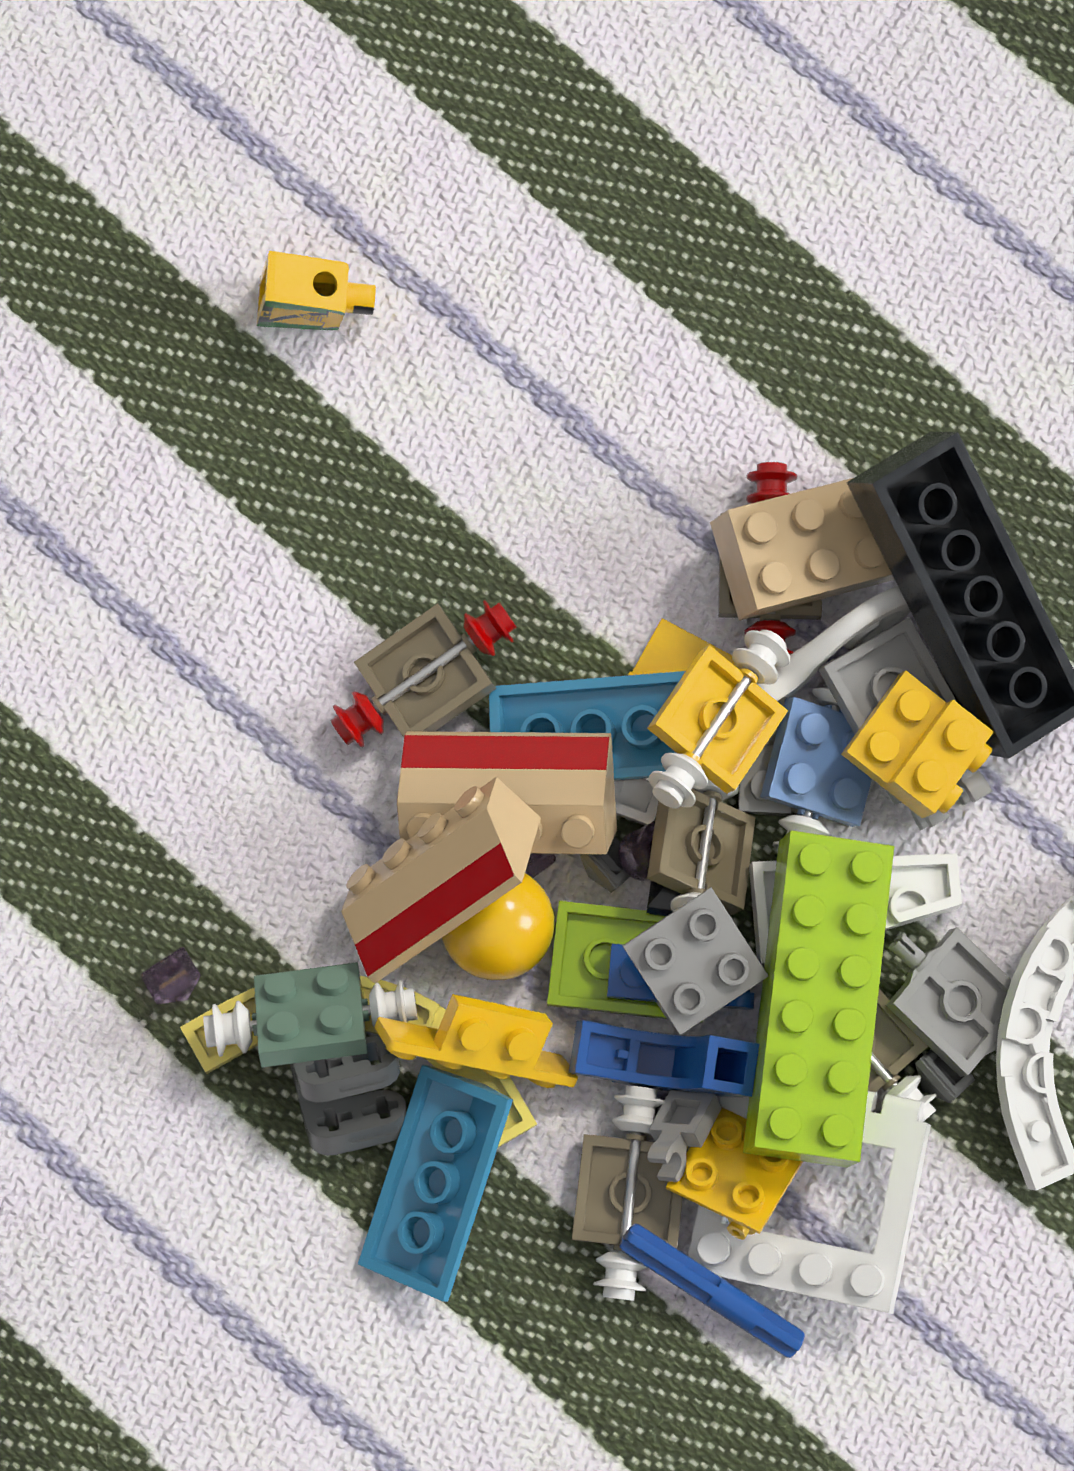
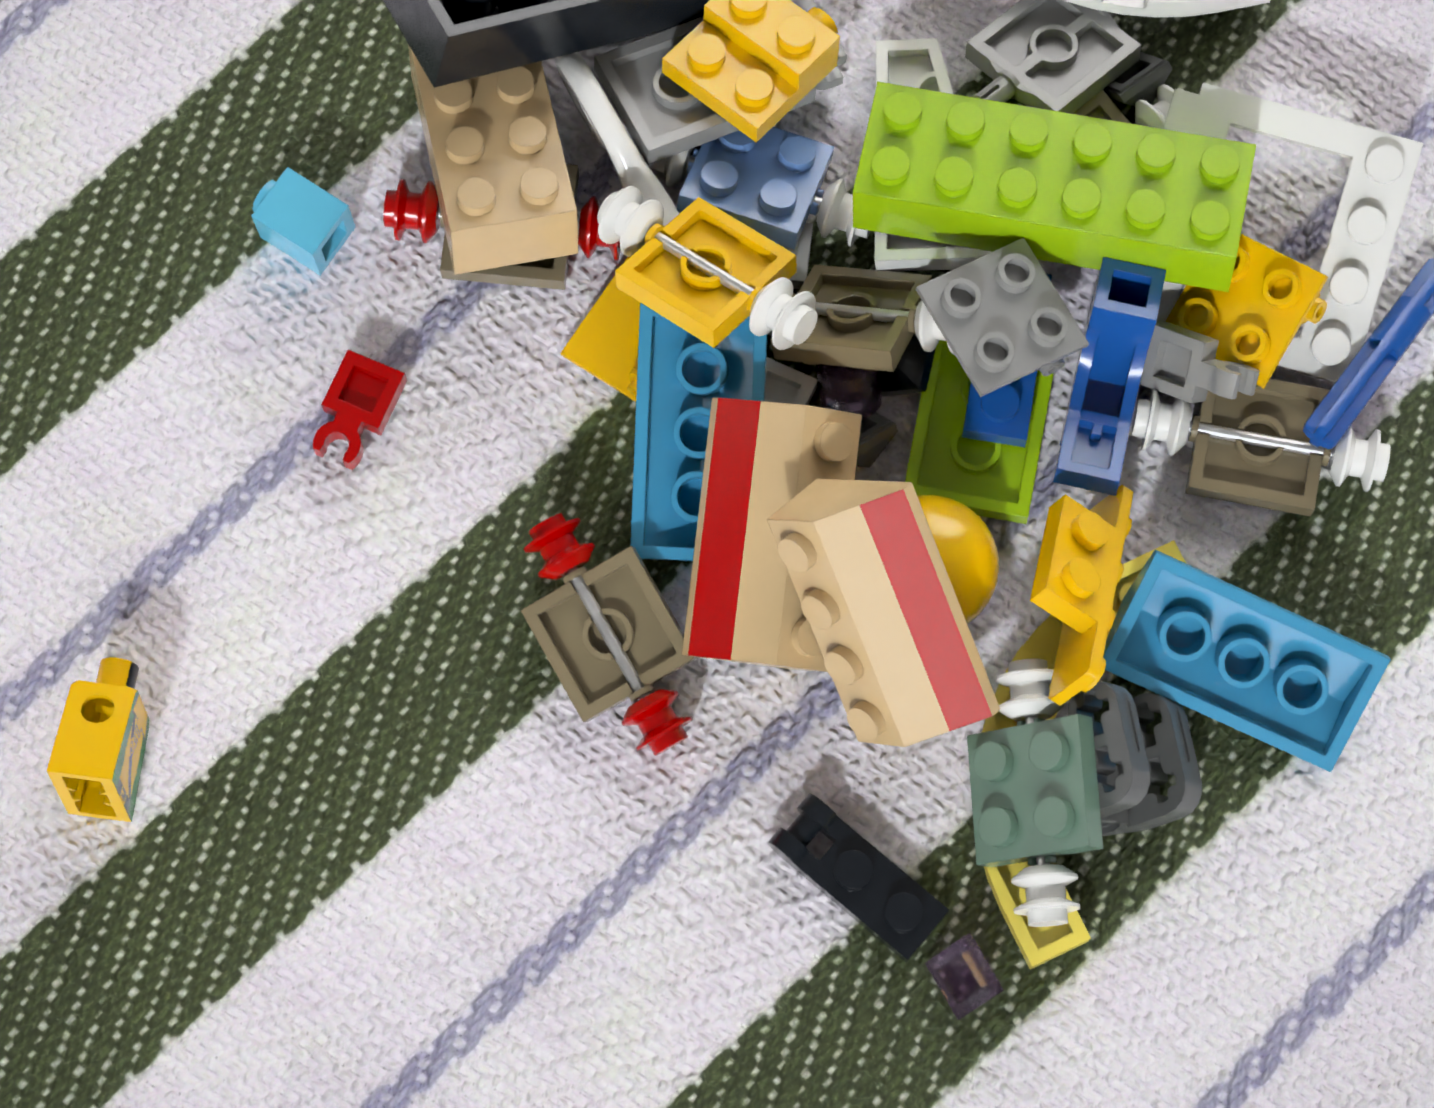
camera: 85 degrees left, 5 degrees down
(245, 890) = (860, 879): none -> black plate
(608, 463) = (360, 399): none -> red plate
(755, 399) = (302, 220): none -> medium azure brick

